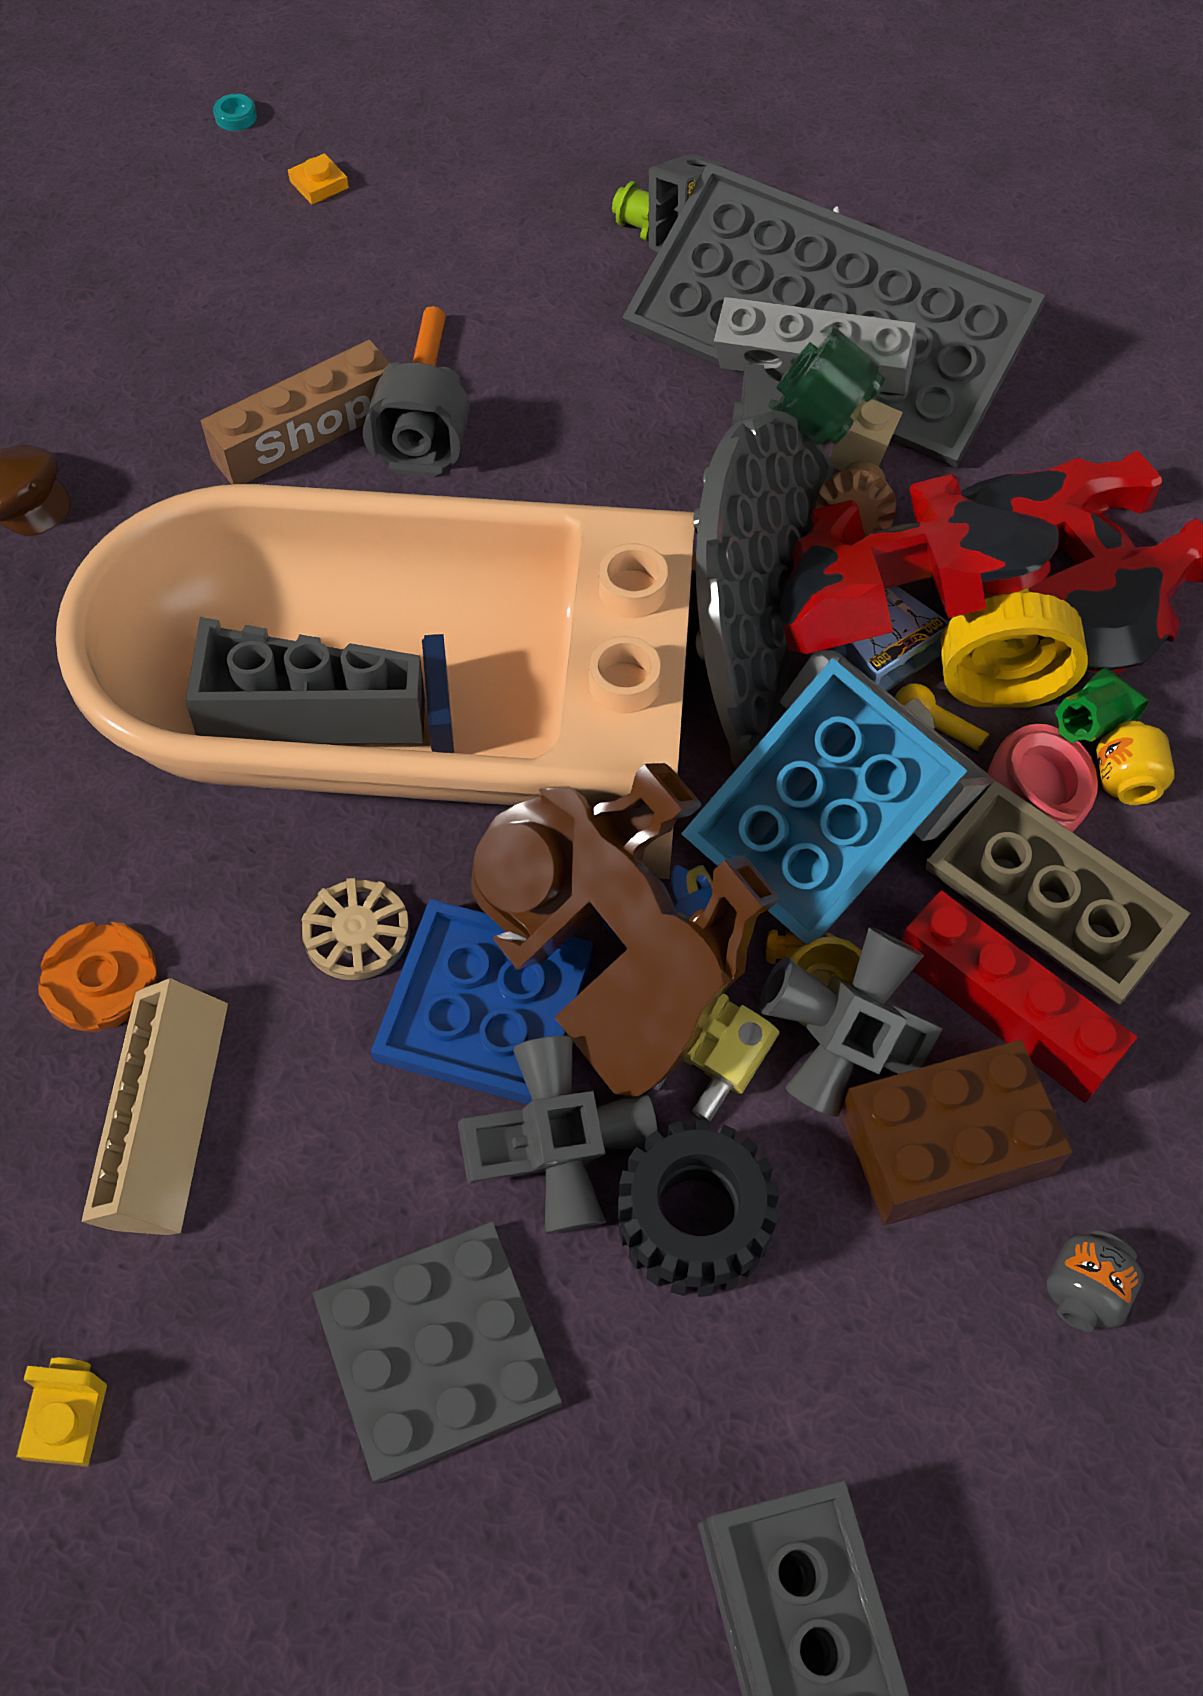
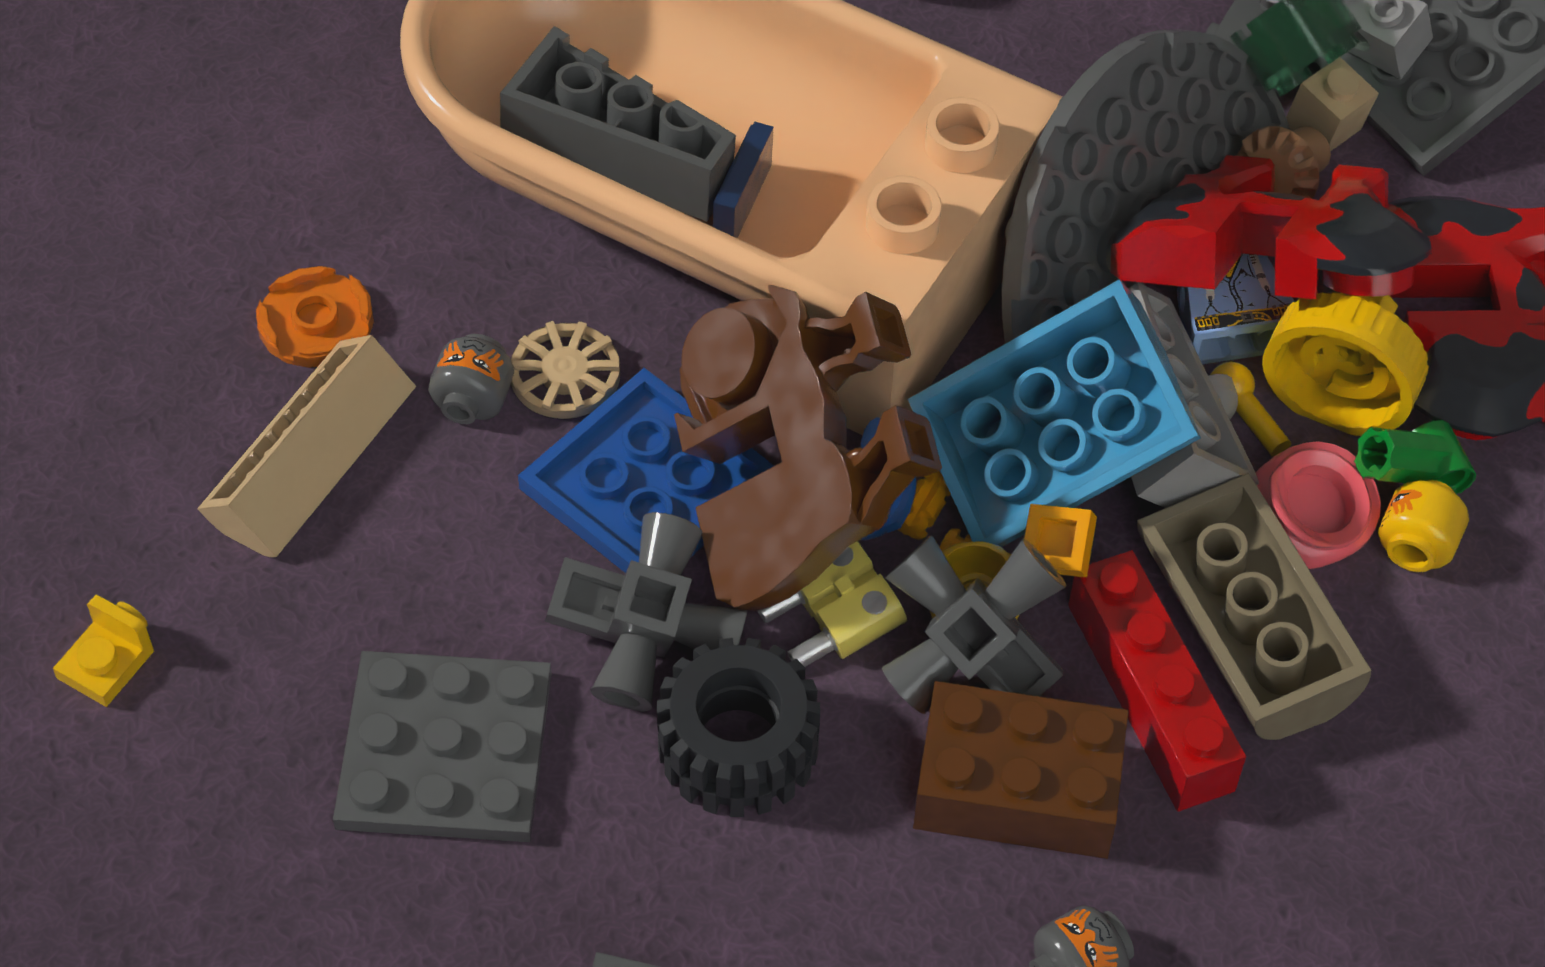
camera: 25 degrees right, 5 degrees down
(277, 975) = (471, 378): none -> dark grey head
(887, 907) = (1062, 536): none -> light orange plate

